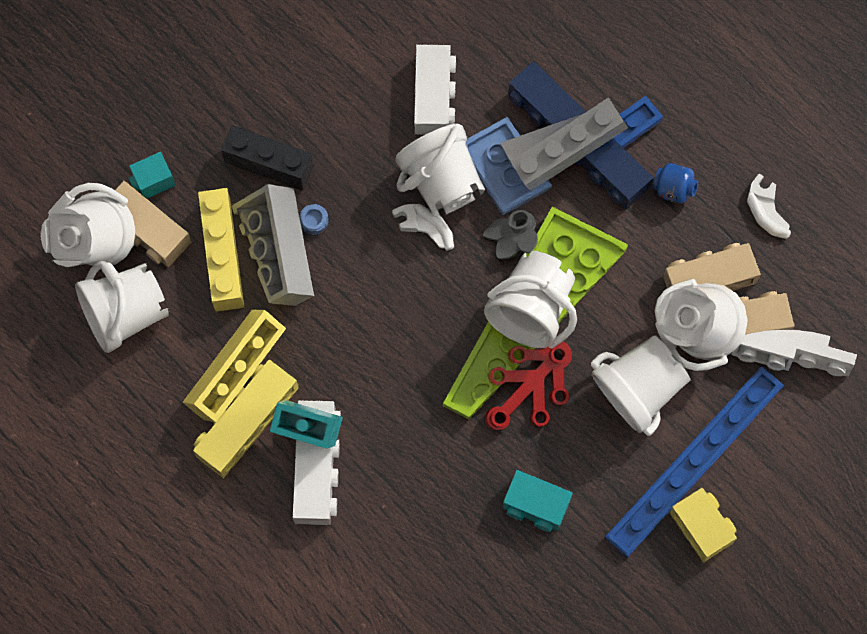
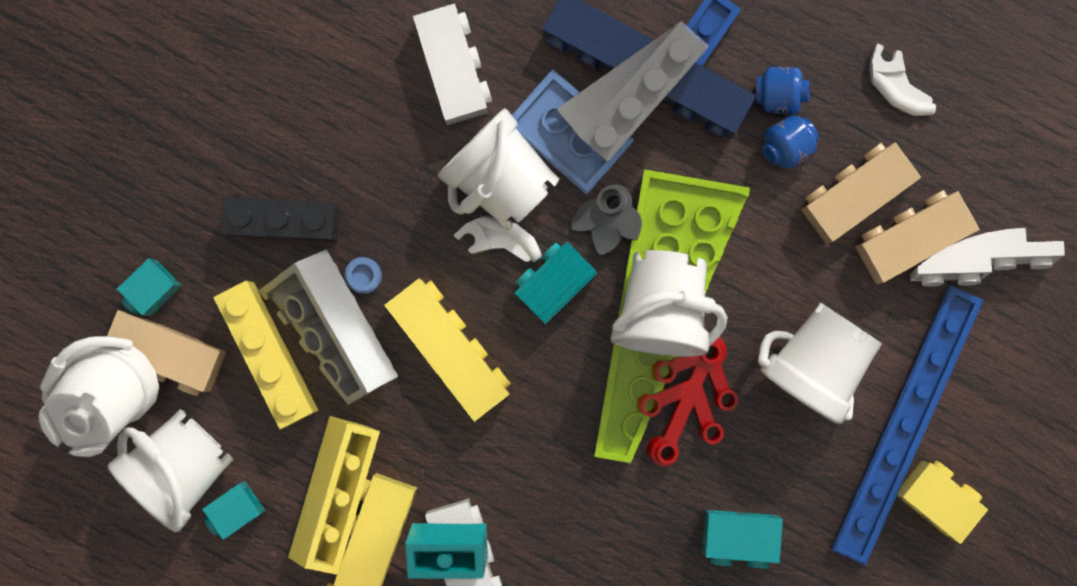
camera: 20 degrees left, 15 degrees up
(153, 355) = (232, 510): none -> teal brick
(358, 289) = (448, 349): none -> light yellow brick
(457, 267) = (554, 282): none -> teal brick
(669, 221) = (790, 142): none -> blue head
(701, 320) = (873, 268): white piece -> none

